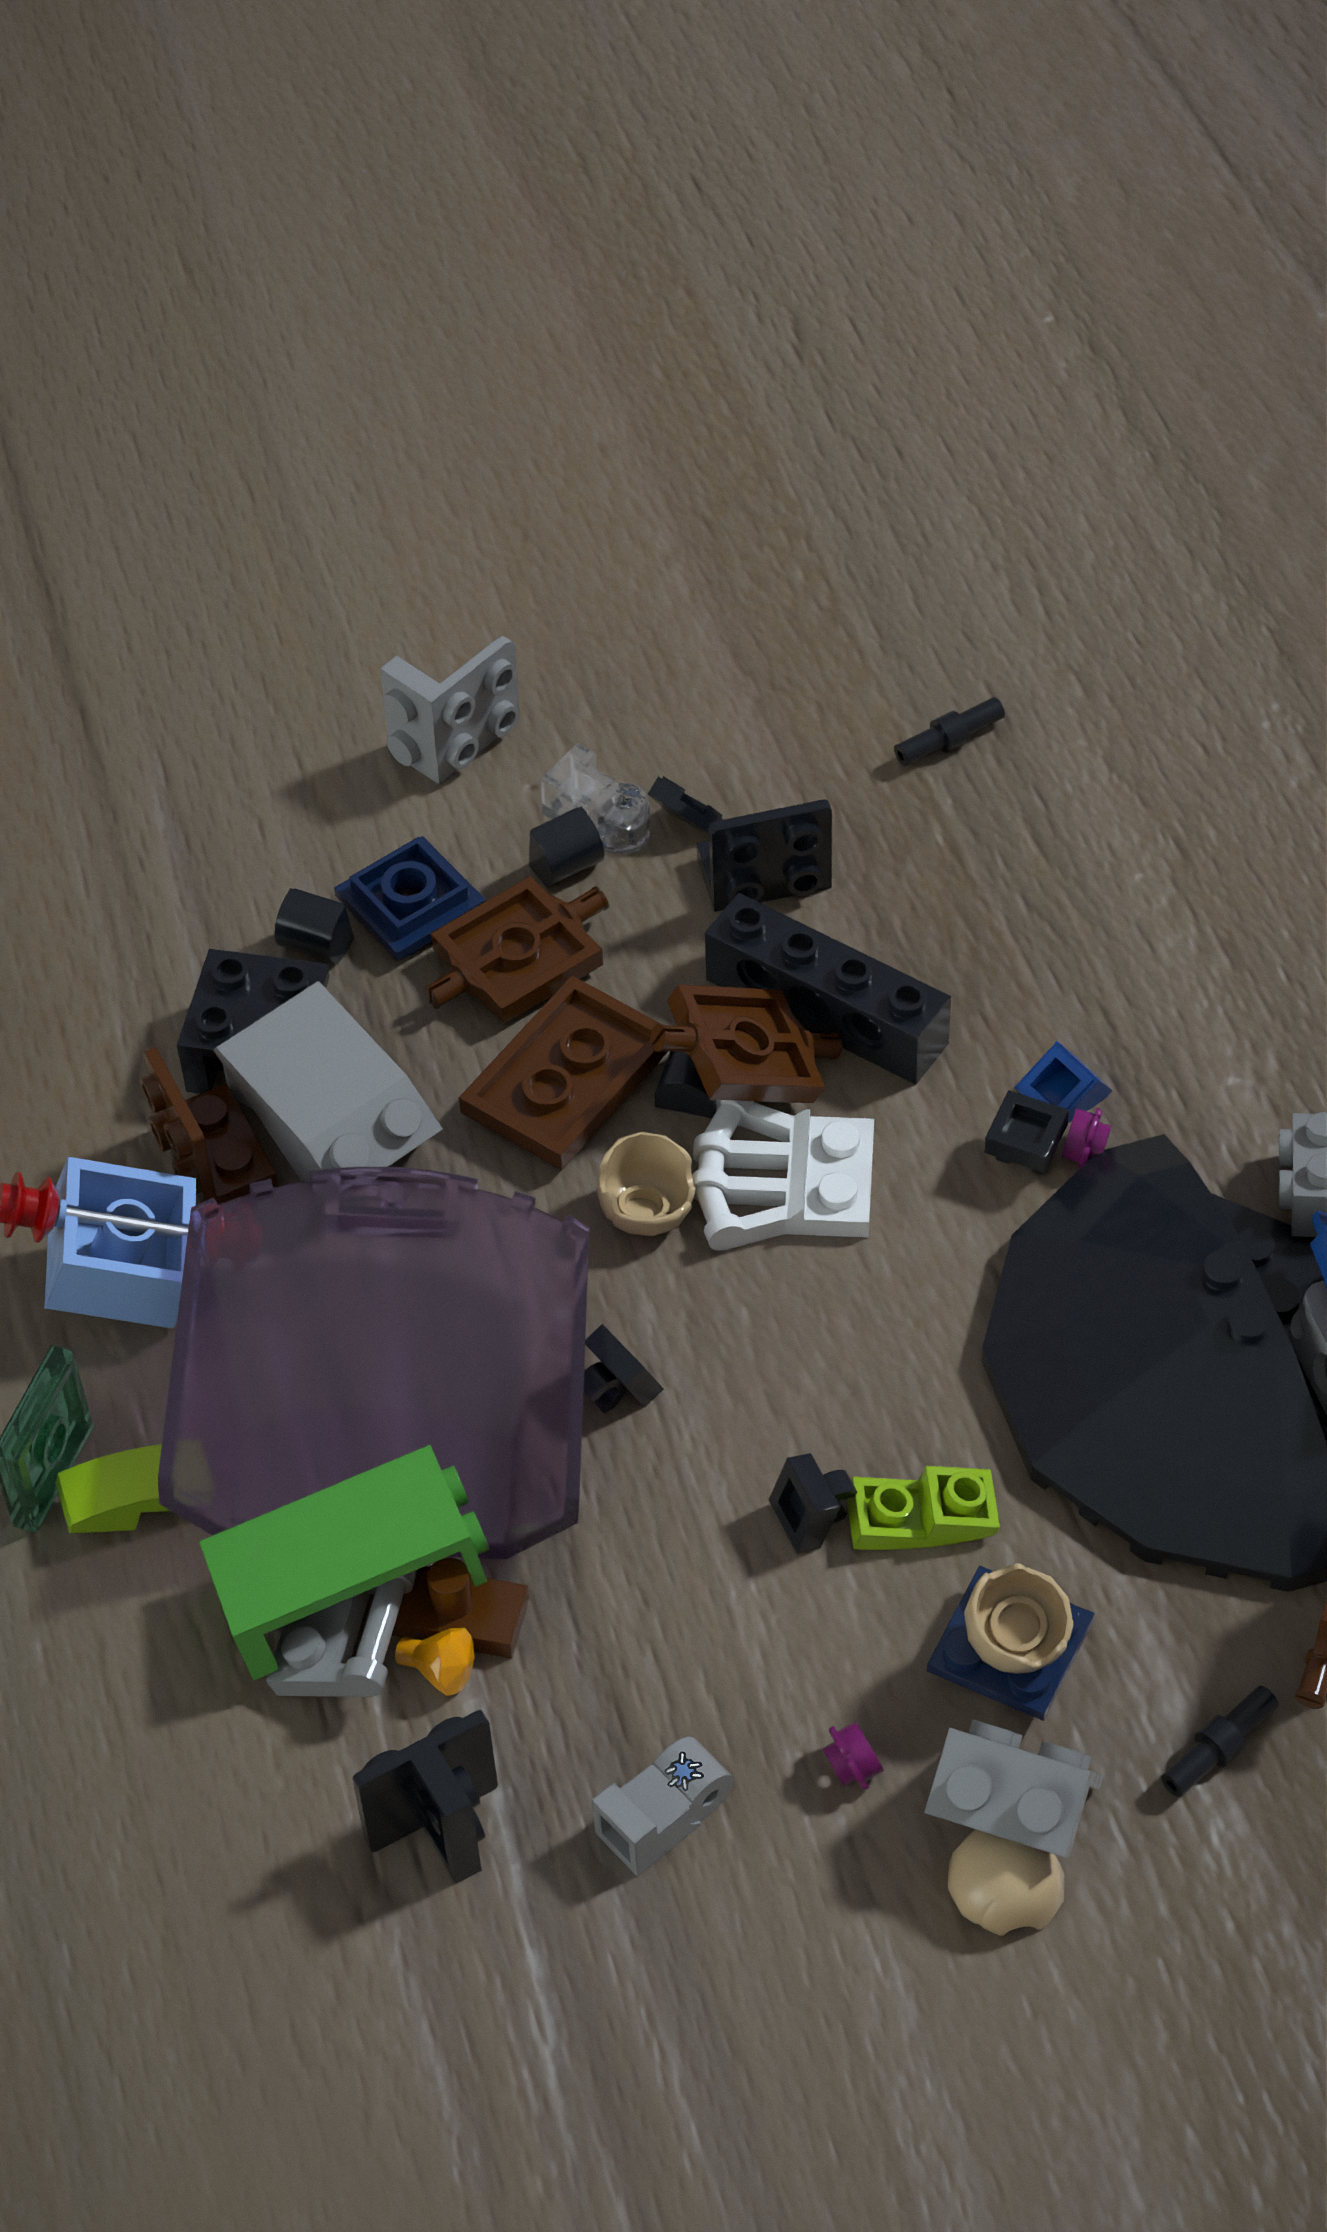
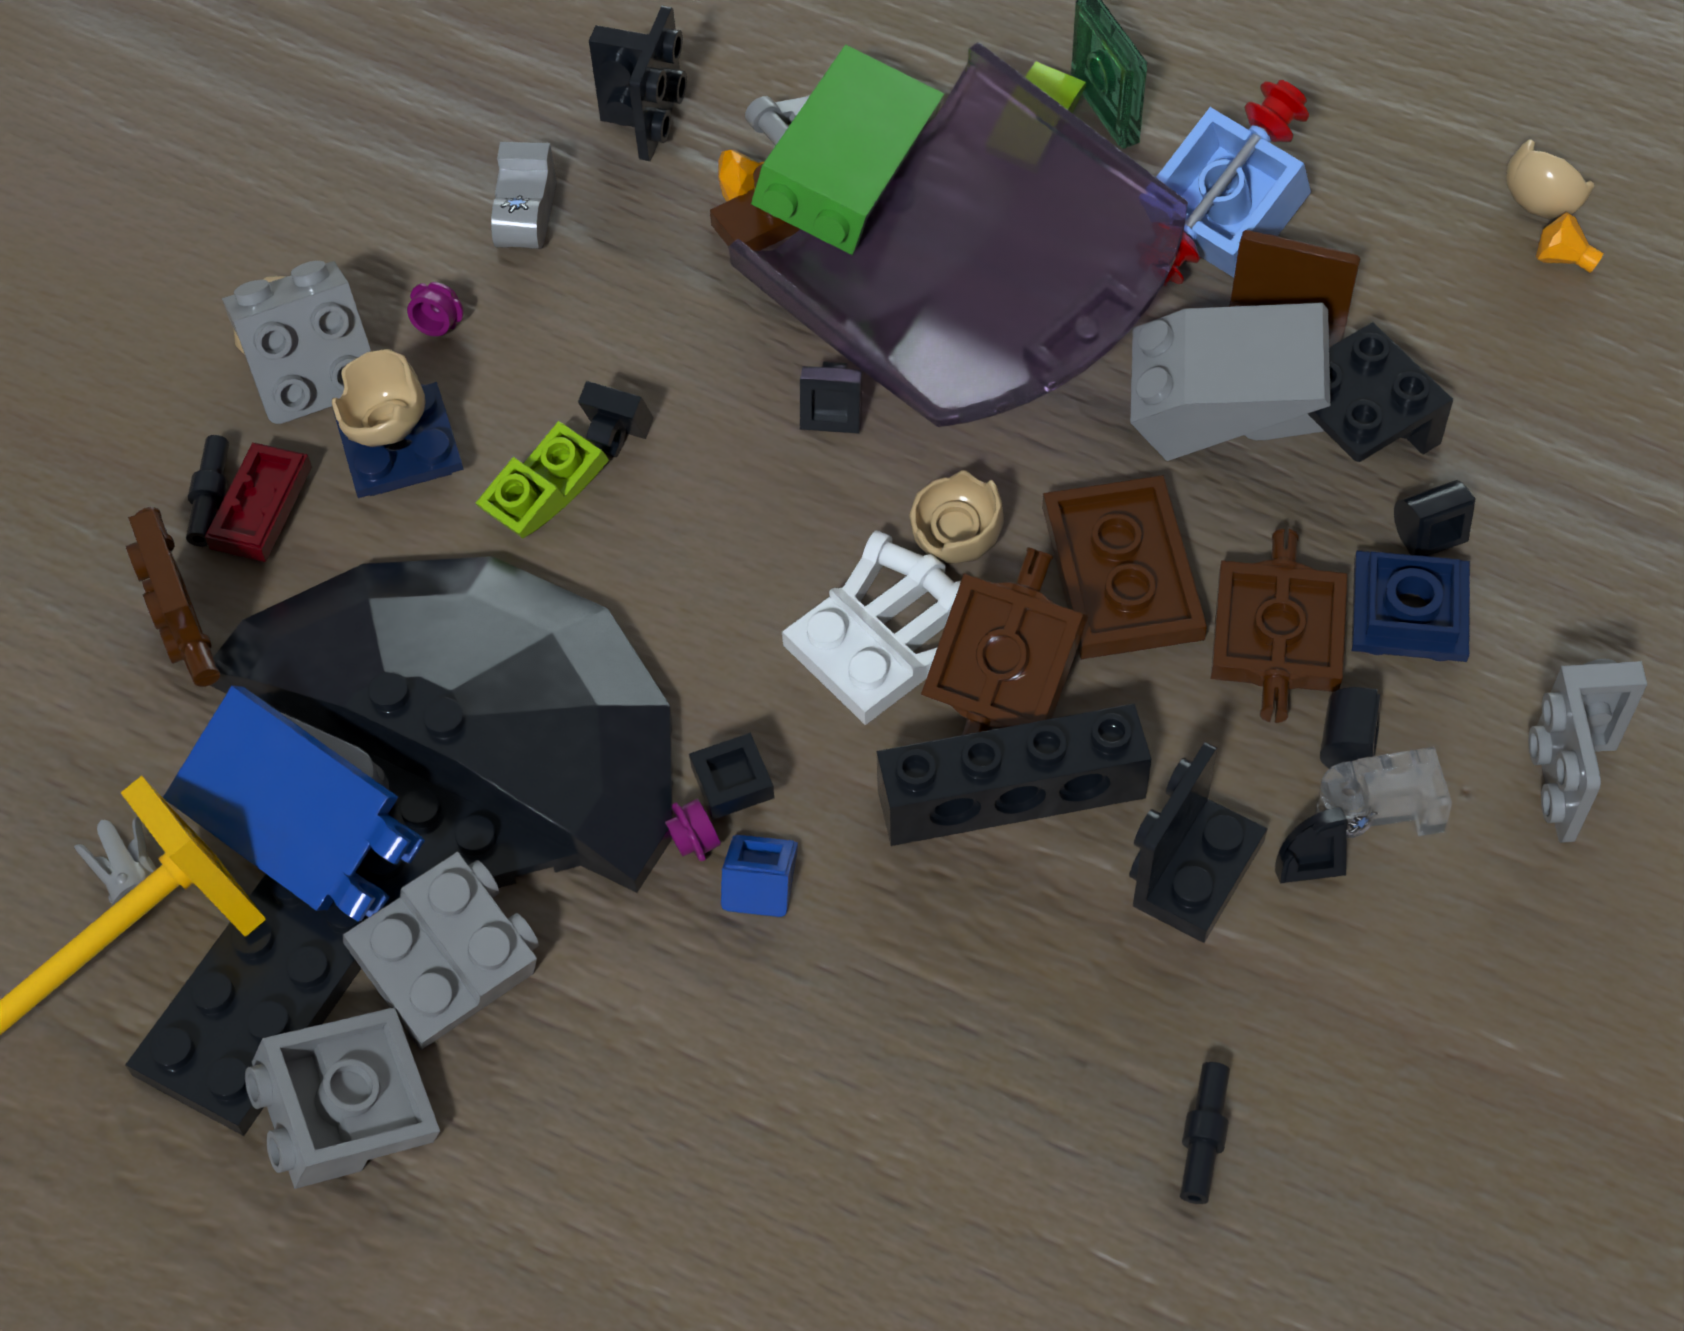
camera: 135 degrees right, 5 degrees up
(1184, 1684) = (258, 502): none -> dark red plate

